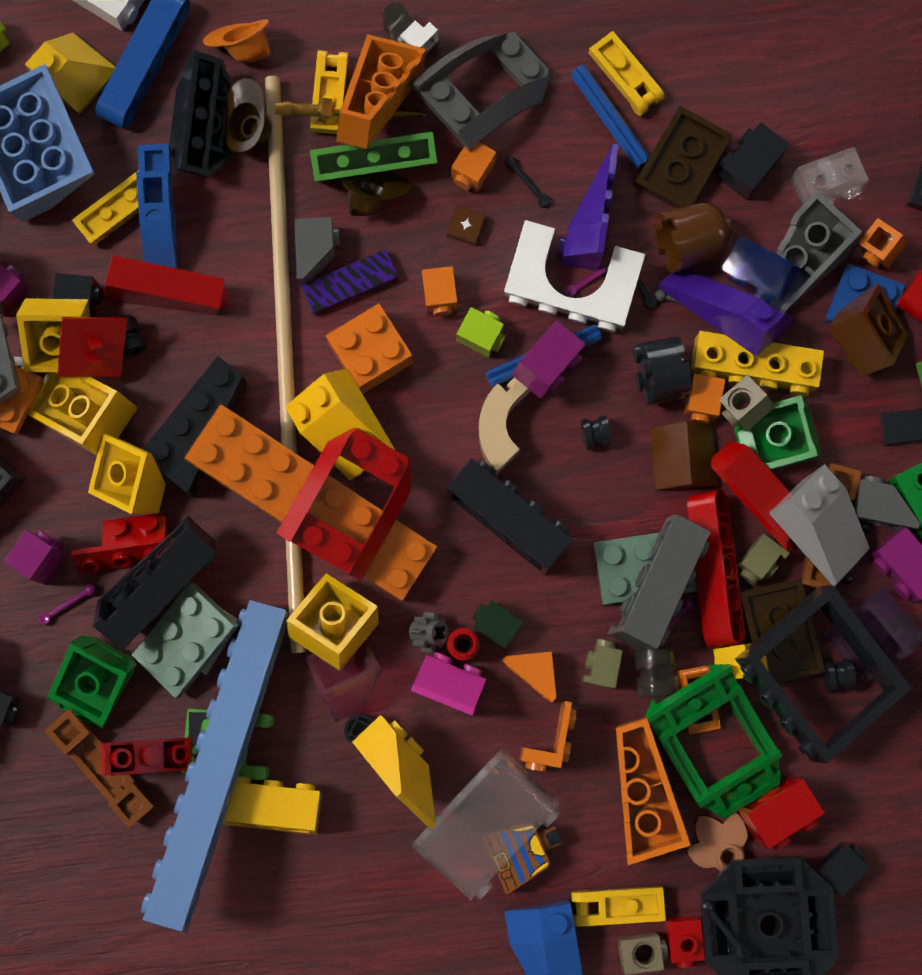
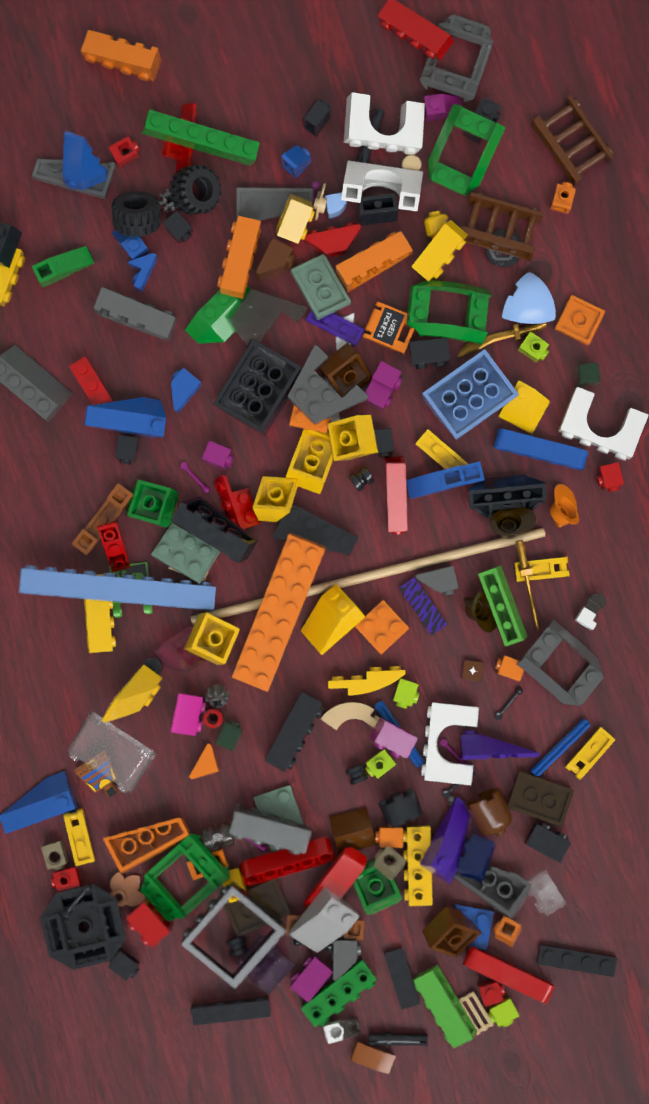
camera: 80 degrees right, 5 degrees up
(91, 347) = (348, 461): red piece -> none
(326, 540) = (256, 627): red wedge -> none
(377, 88) = (550, 602): orange wedge -> none
(439, 291) = (426, 662): orange brick -> none
(450, 377) = (374, 680): none -> yellow slope
(538, 759) = (154, 777): orange bracket -> none
(585, 393) = (379, 764): none -> lime brick
(603, 664) = (217, 803): olive brick -> none
(761, 559) = (297, 887): olive brick -> none

